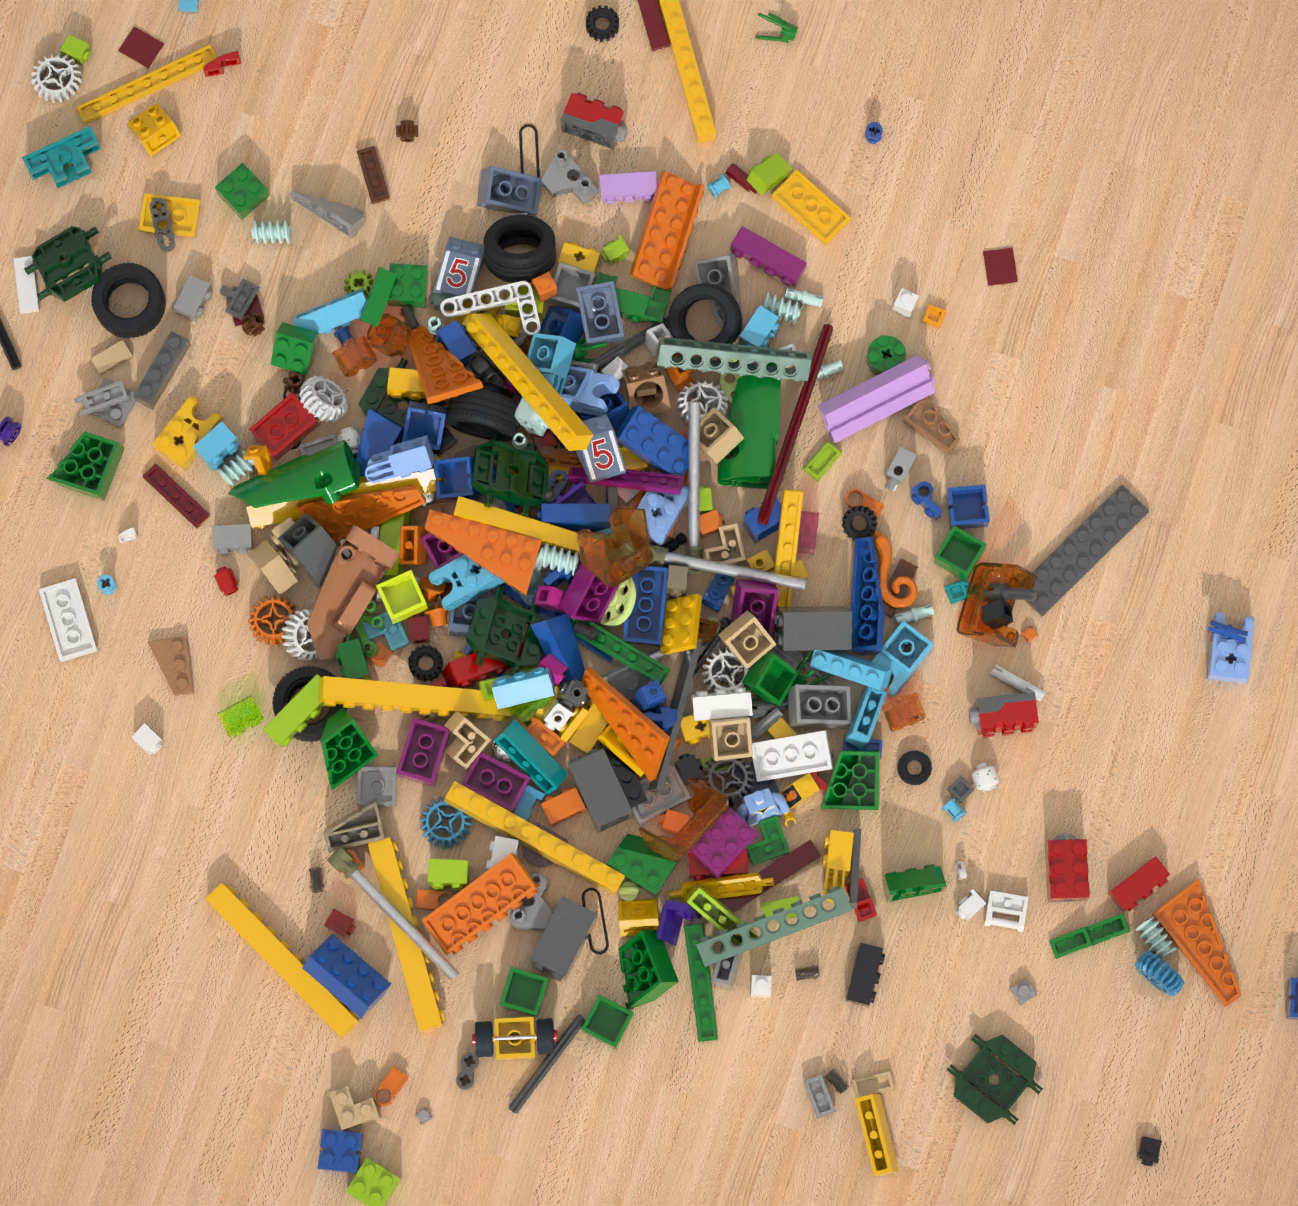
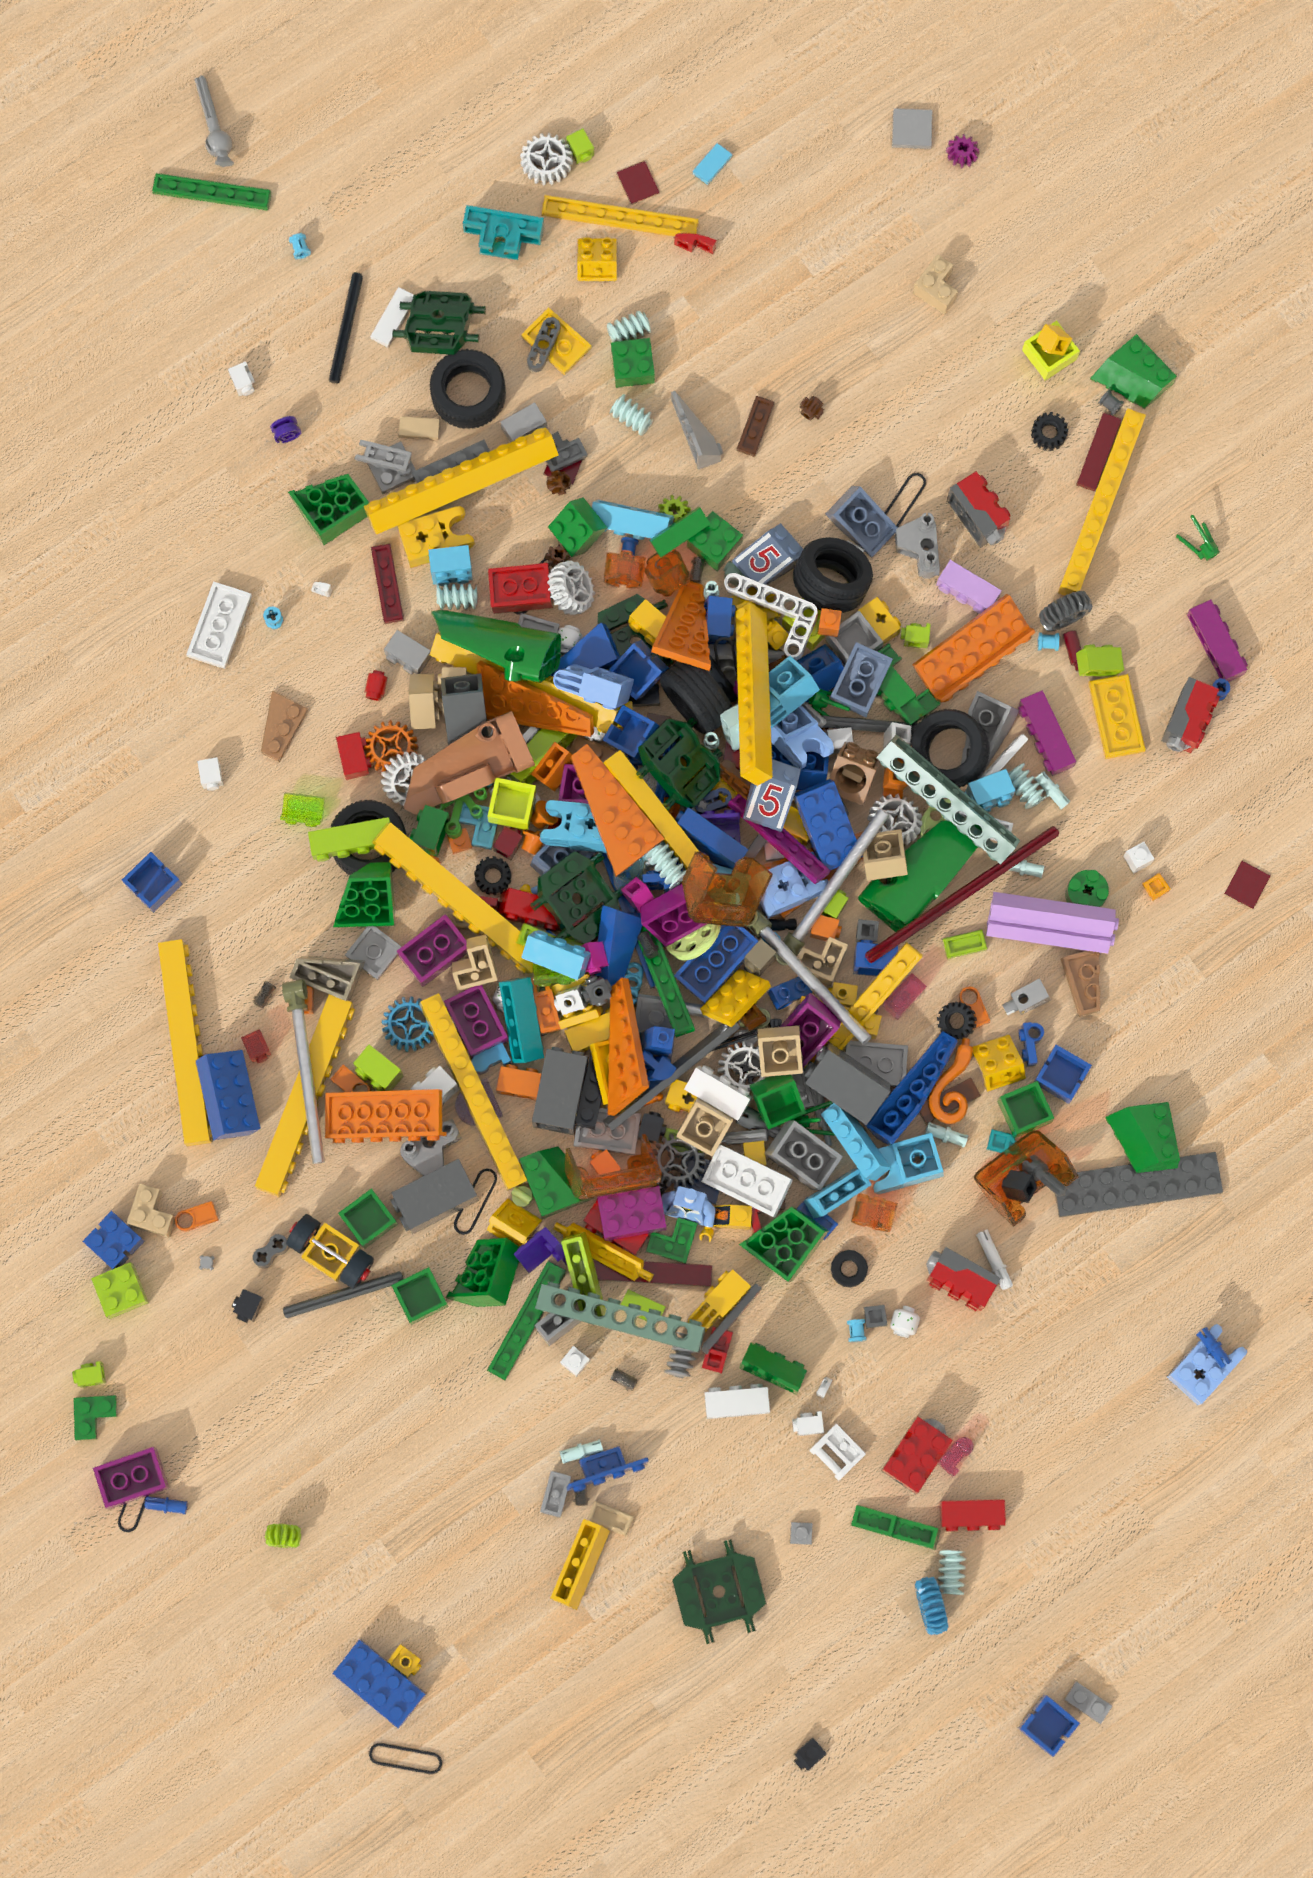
camera: 35 degrees right, 0 degrees up
(164, 856) = (151, 882): none -> blue piece
(177, 375) = (461, 480): none -> yellow brick
(218, 165) = (628, 327): none -> light aqua piece
(249, 647) = (353, 755): none -> red brick
(261, 458) = (479, 600): light orange bracket -> none
(480, 1126) = (247, 1306): none -> black brick
(593, 662) = (637, 977): none -> medium azure piece
(715, 153) = (1065, 611): none -> dark grey gear
(742, 503) = (867, 930): none -> dark grey brick
(750, 297) = (1008, 753): none -> white tile
(815, 1050) = (581, 1451): none -> light aqua pin
(825, 591) = (883, 1059): none -> light grey plate
(839, 927) = (680, 1362): none -> light grey piece
(839, 1049) = (604, 1465): none -> blue bracket
(845, 97) = (1216, 641): none -> magenta brick
(865, 975) = (672, 1417): black brick -> none
(867, 168) = (1191, 716): none -> piece
(904, 928) = (737, 1401): none -> white brick
(913, 532) = (999, 1062): none -> yellow bracket
(1029, 634) = (1036, 1224): orange piece -> none
(1064, 509) = (1146, 1136): none -> green wedge
(1094, 847) = (953, 1456): none -> clear pink leg
(1194, 932) = (991, 1590): orange wing -> none

